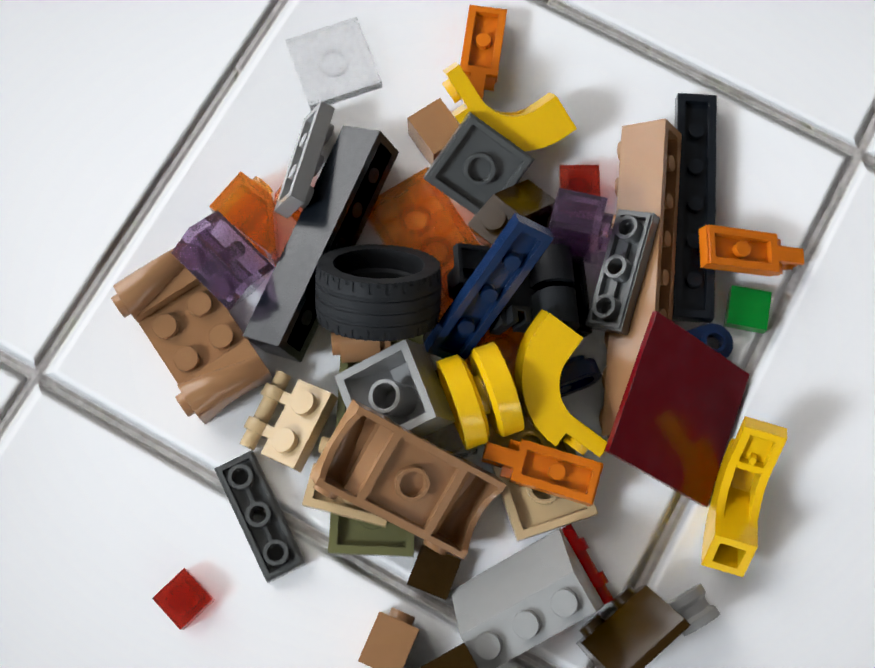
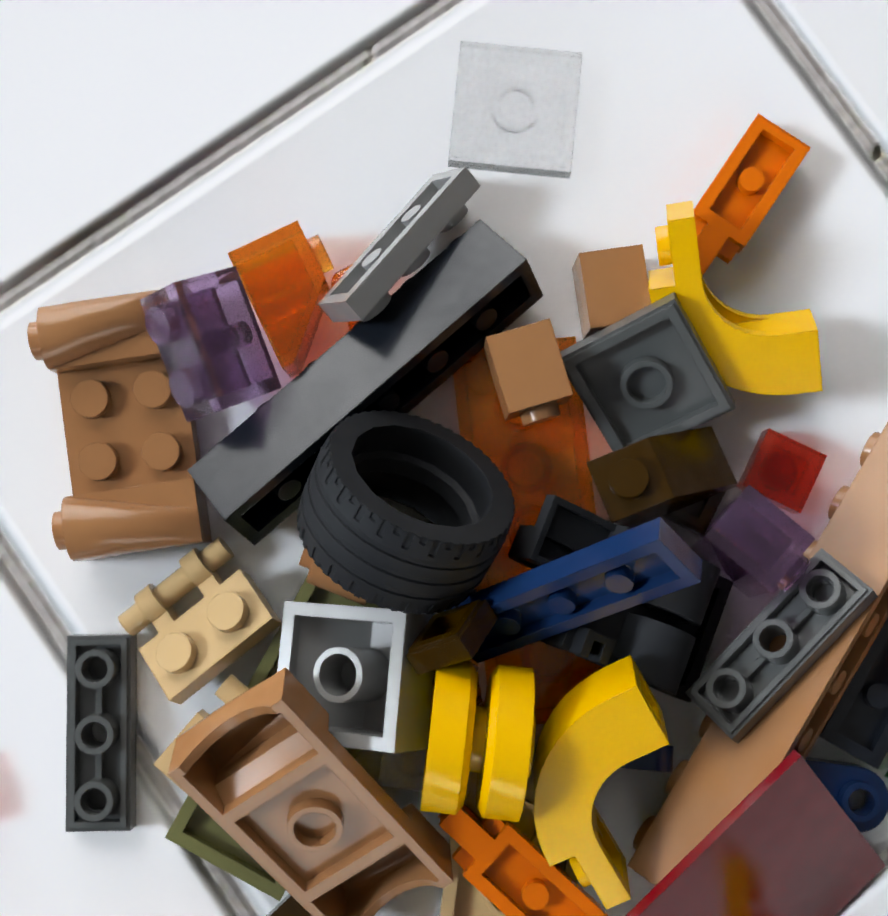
camera: 25 degrees right, 10 degrees up
(410, 192) = (528, 372): none -> medium nougat brick
(437, 342) = (451, 636): none -> dark brown tile

